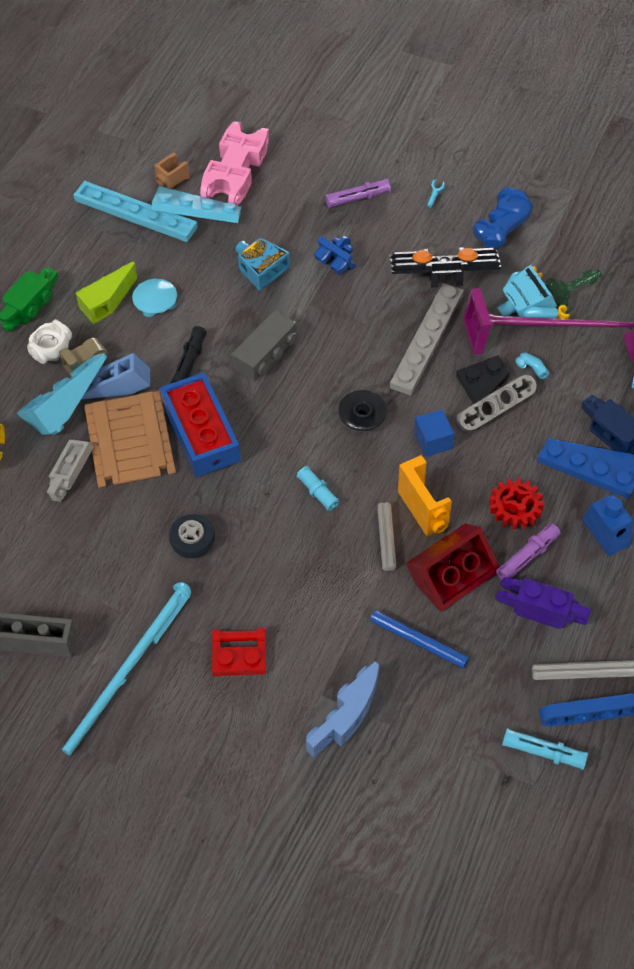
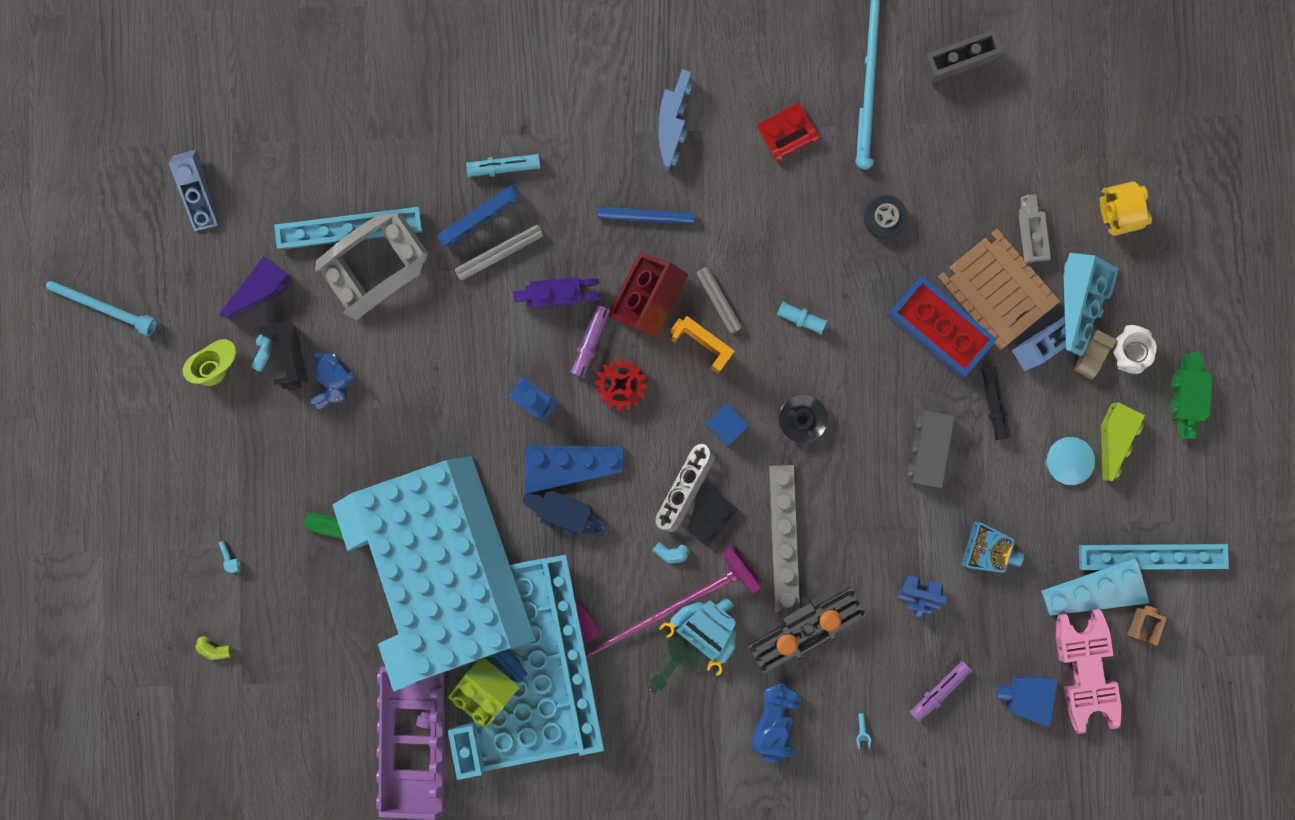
camera: 150 degrees right, 30 degrees up
(290, 164) = (1030, 697): none -> blue torso

